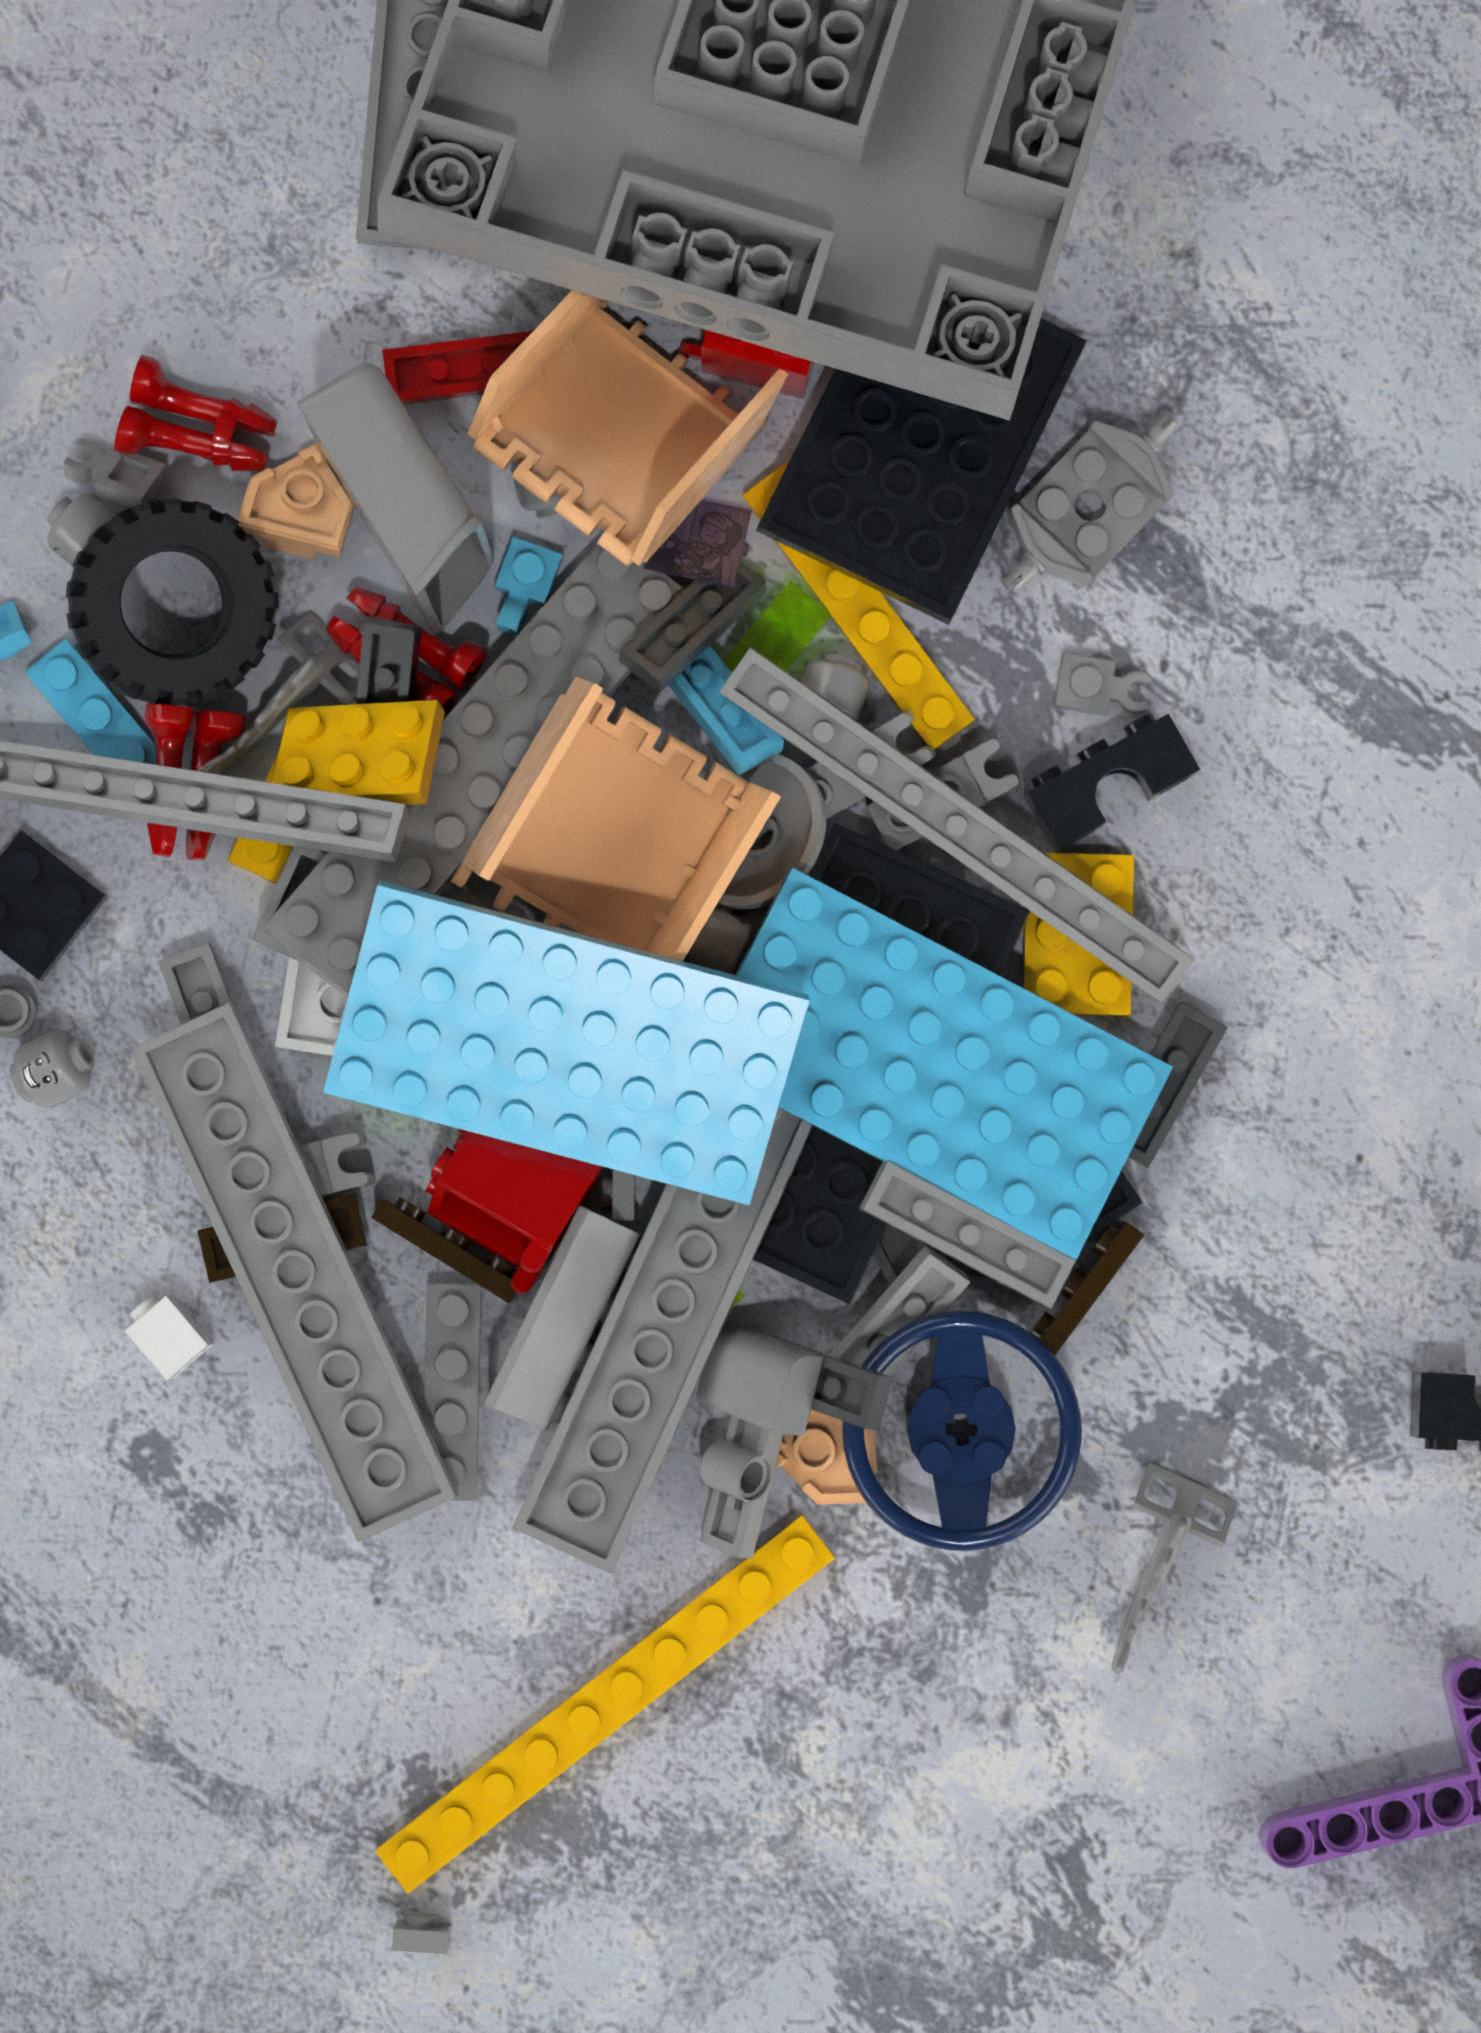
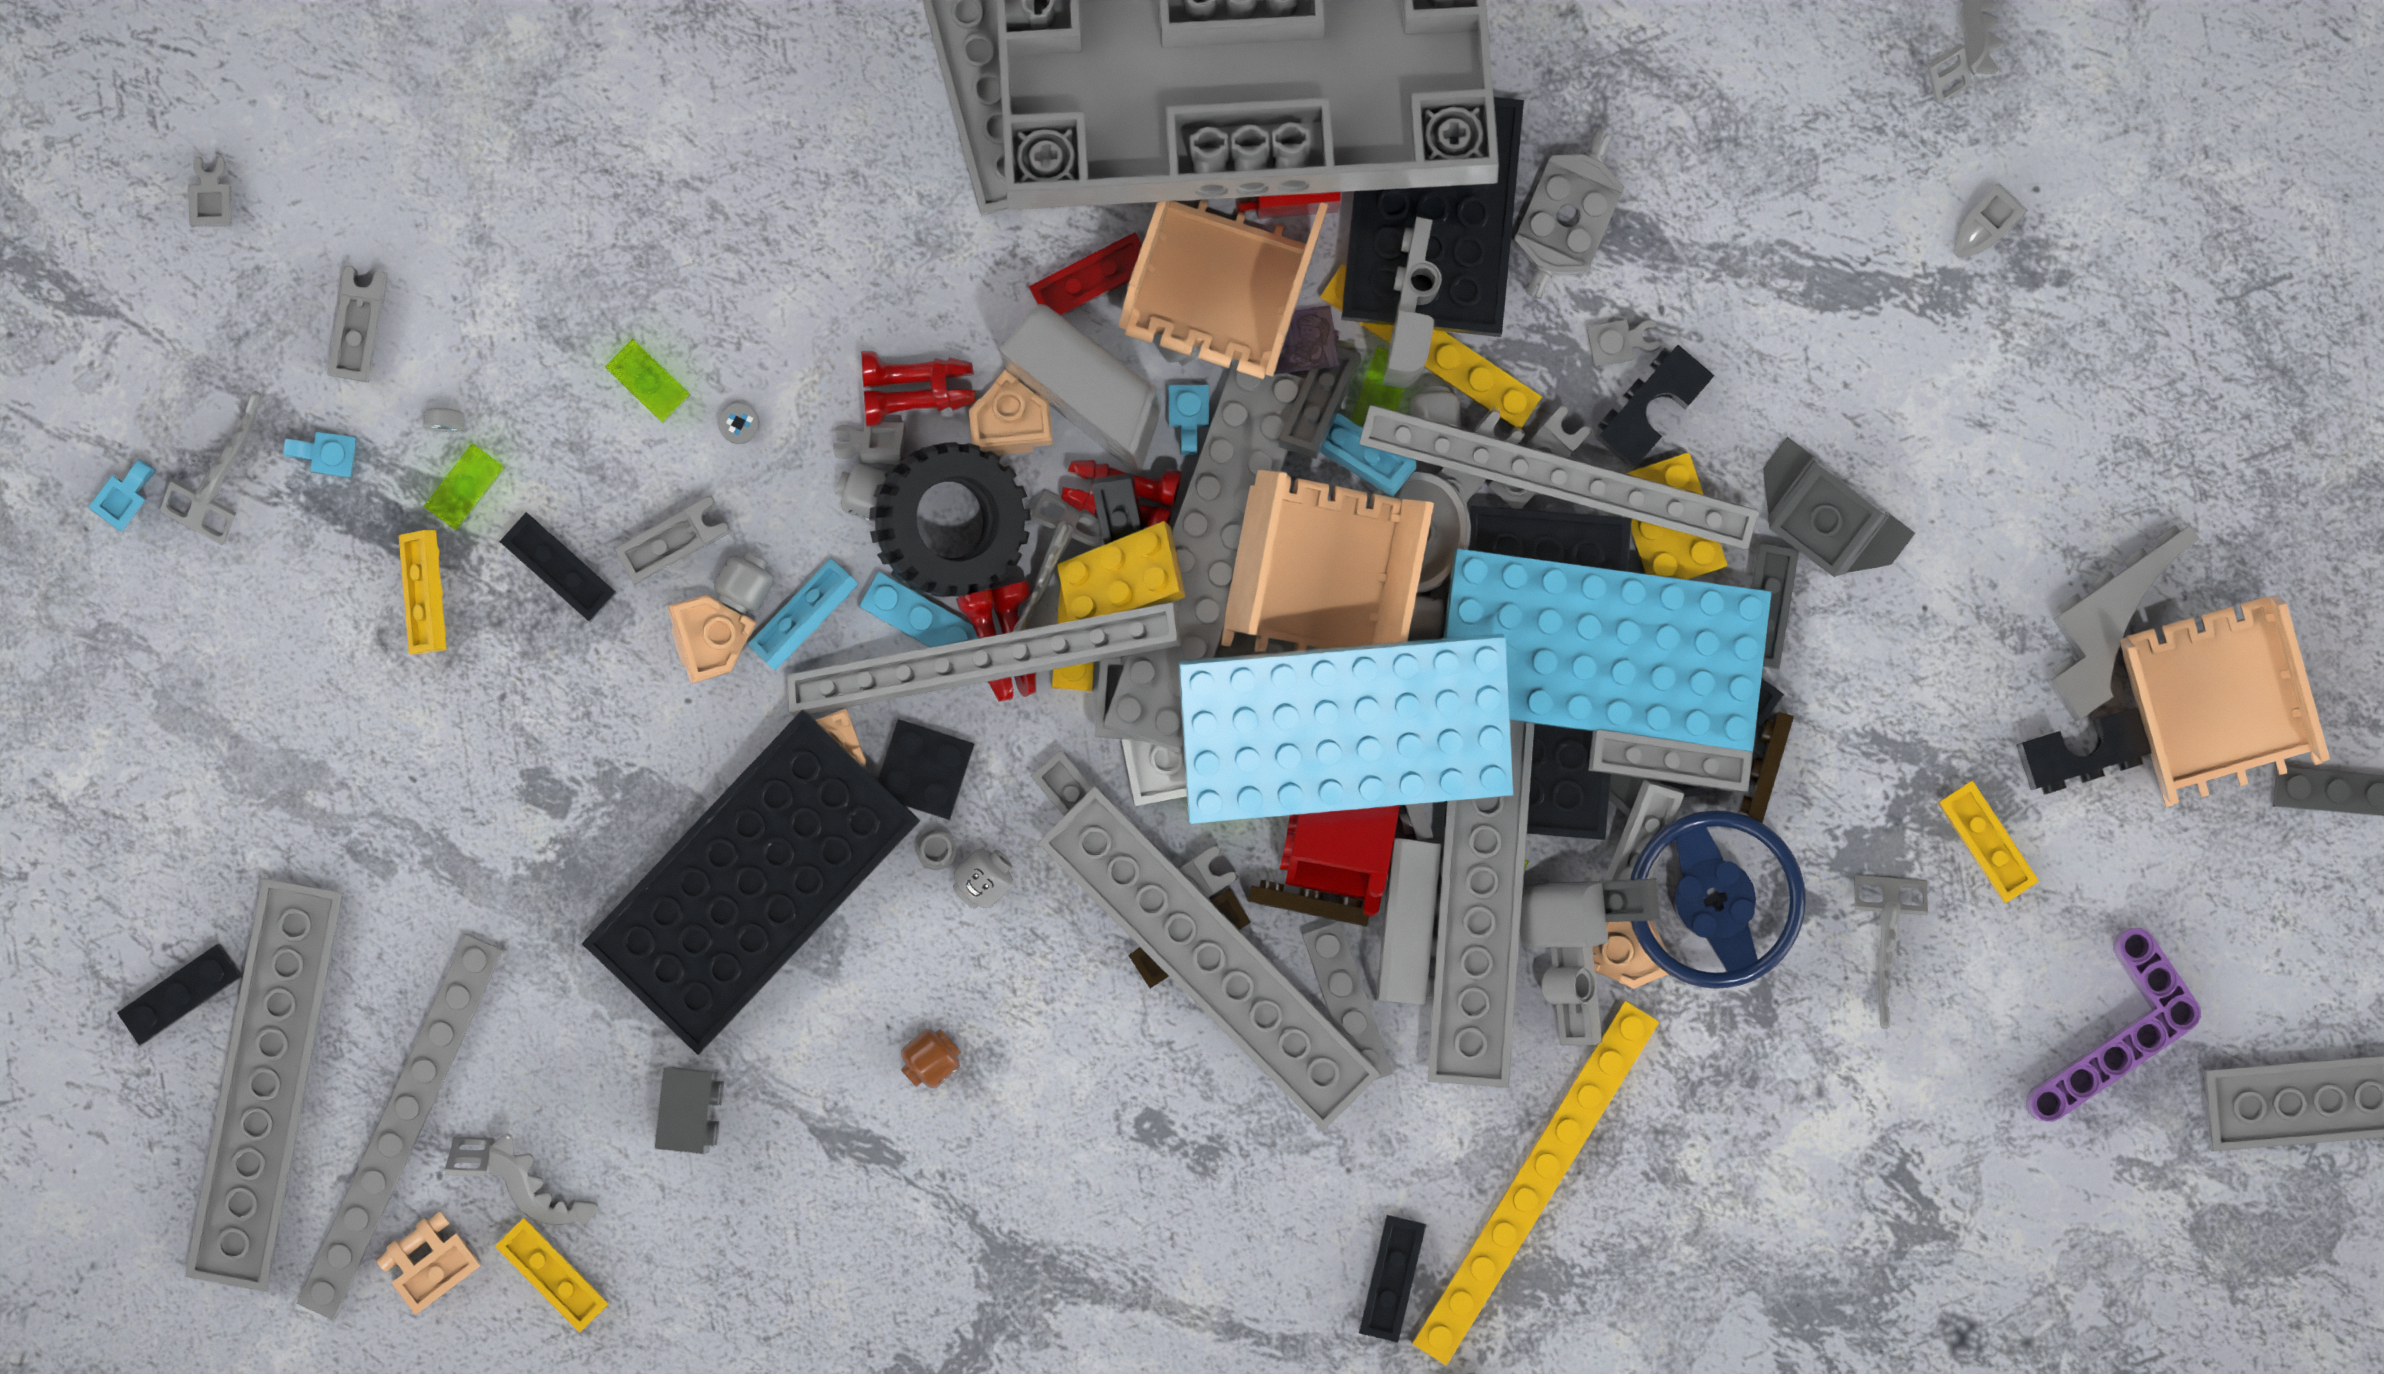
camera: 25 degrees left, 0 degrees up
(167, 1335) = (1133, 1036): white brick -> none
(380, 1759) = (1392, 1278): none -> black plate
(837, 570) = (1412, 330): none -> light grey plate
(1279, 999) = (1827, 516): none -> dark grey piece
(1332, 1482) = (1988, 842): none -> yellow plate

